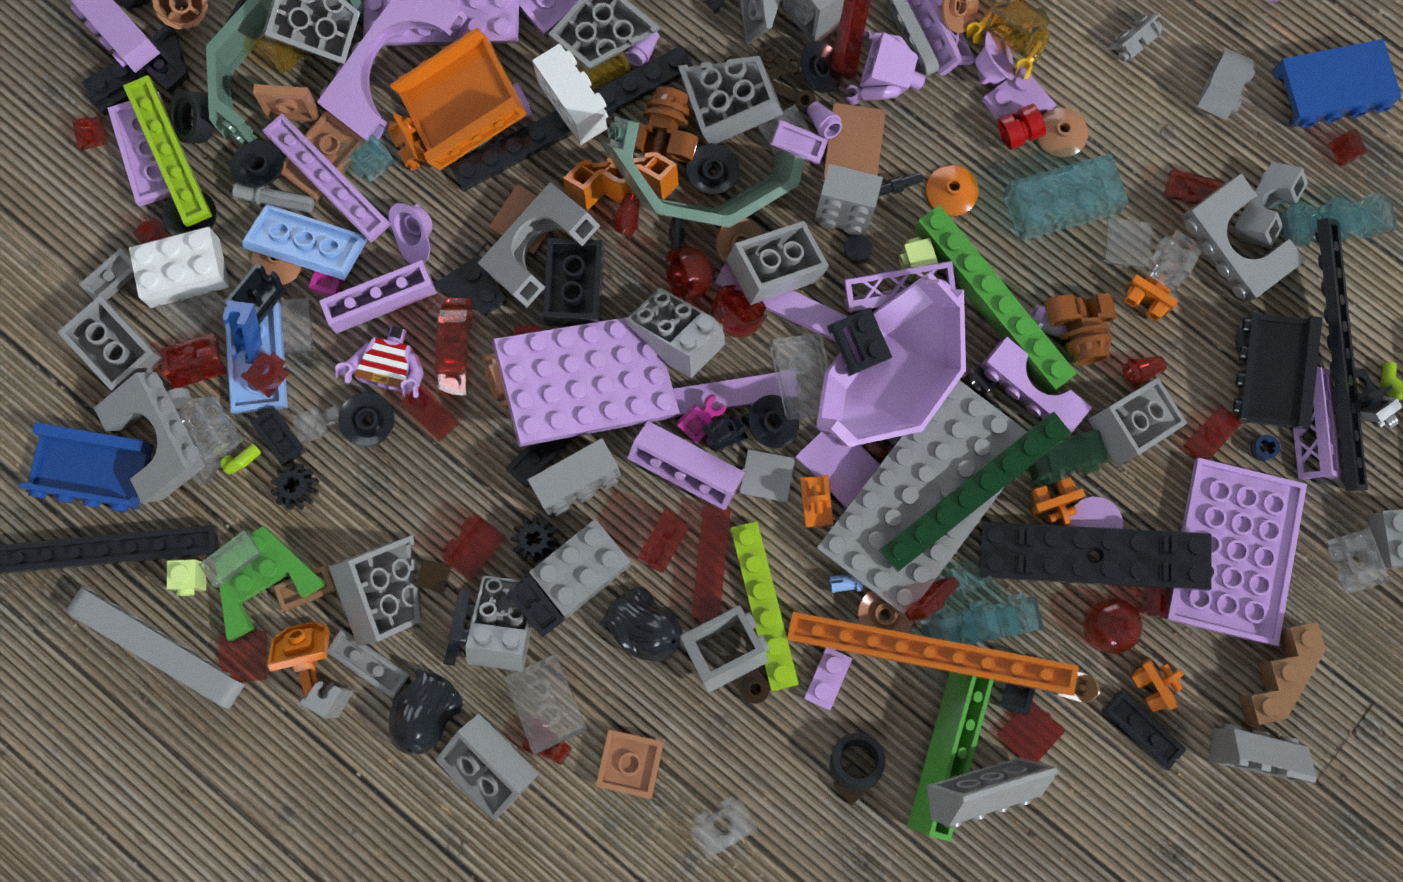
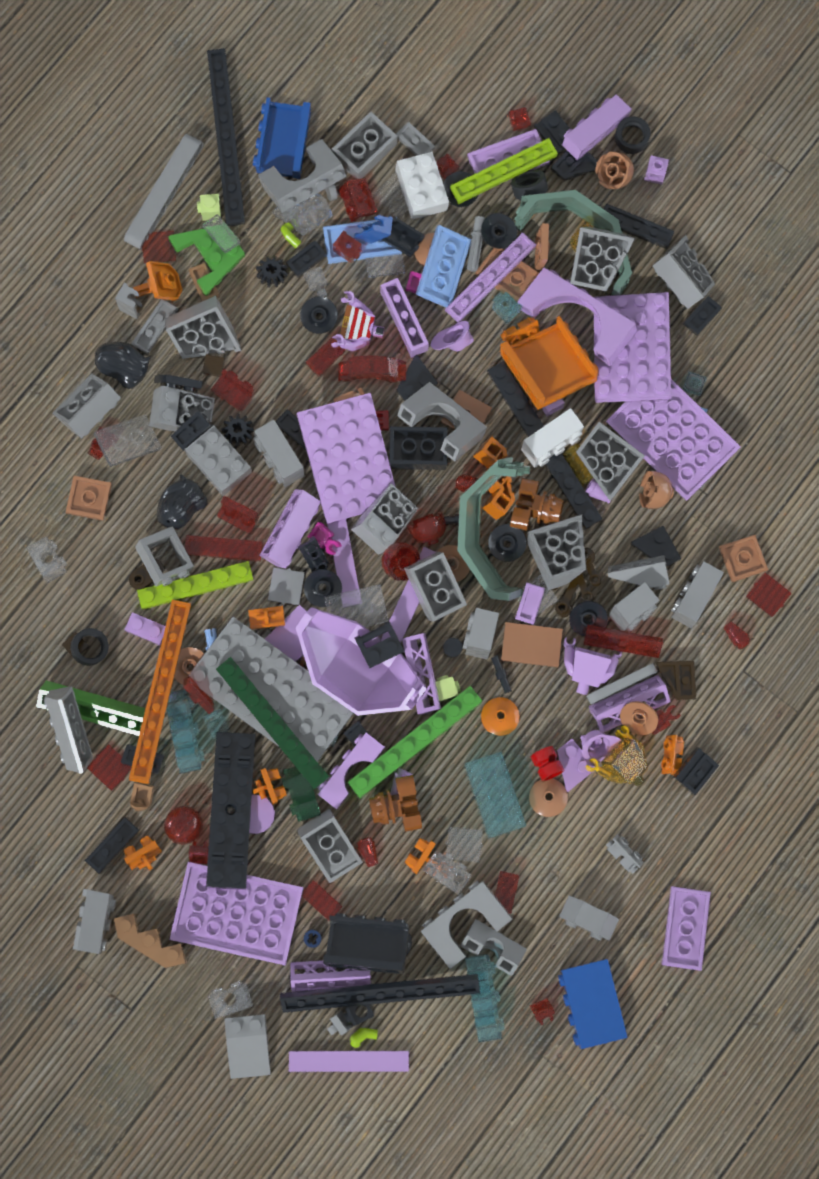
camera: 85 degrees right, 0 degrees up
(826, 122) = (546, 620): lavender cone -> none

